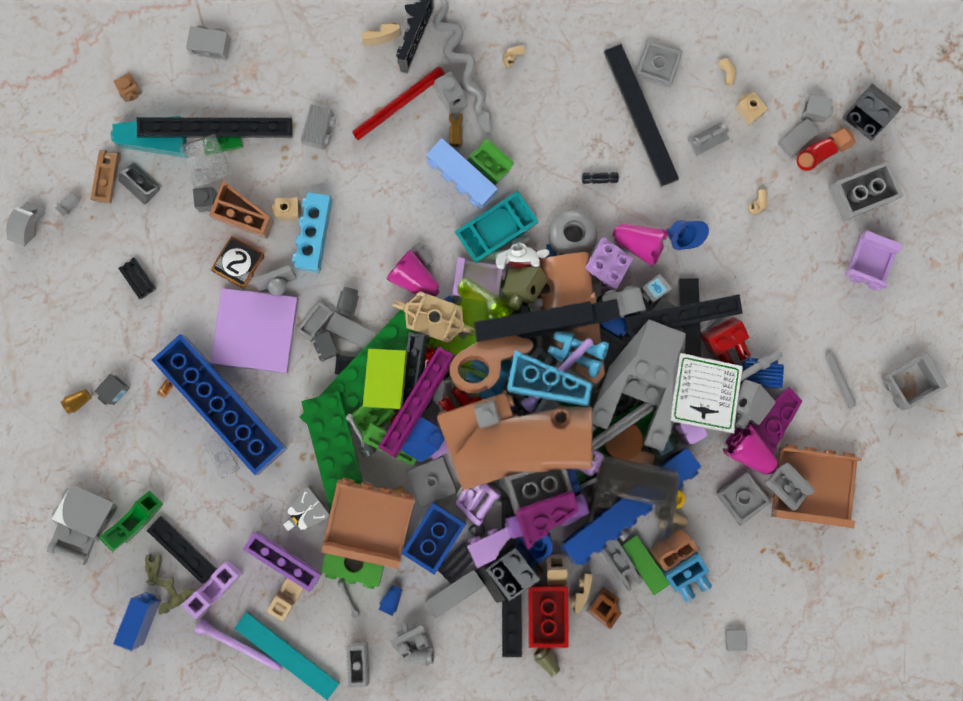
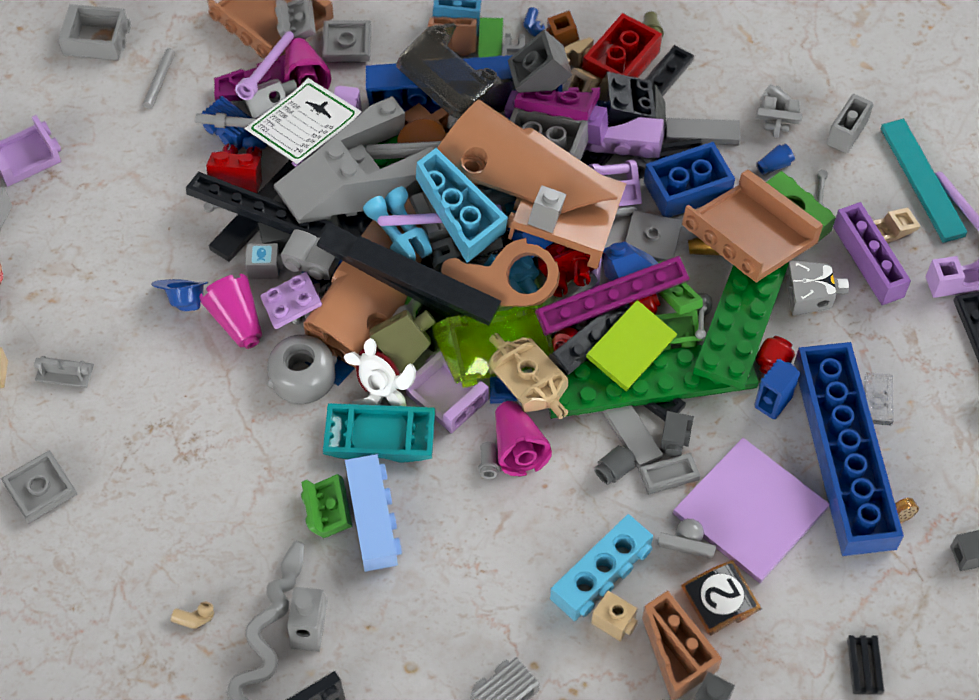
camera: 145 degrees left, 25 degrees down
(281, 414) = (776, 388): none -> blue brick
(299, 442) = (774, 349): none -> red head
(397, 103) = (379, 655): red axle -> none
(455, 131) = (337, 573): pearl gold bar -> none
(577, 533) = (540, 65): none -> dark grey slope
(600, 178) = (218, 410): black axle -> none
(632, 605) = (530, 22): none -> blue arm
(641, 115) = (110, 450): black tile -> none
(759, 205) = (76, 274): tan arm -> none
(760, 388) = (248, 86): none -> lavender piece

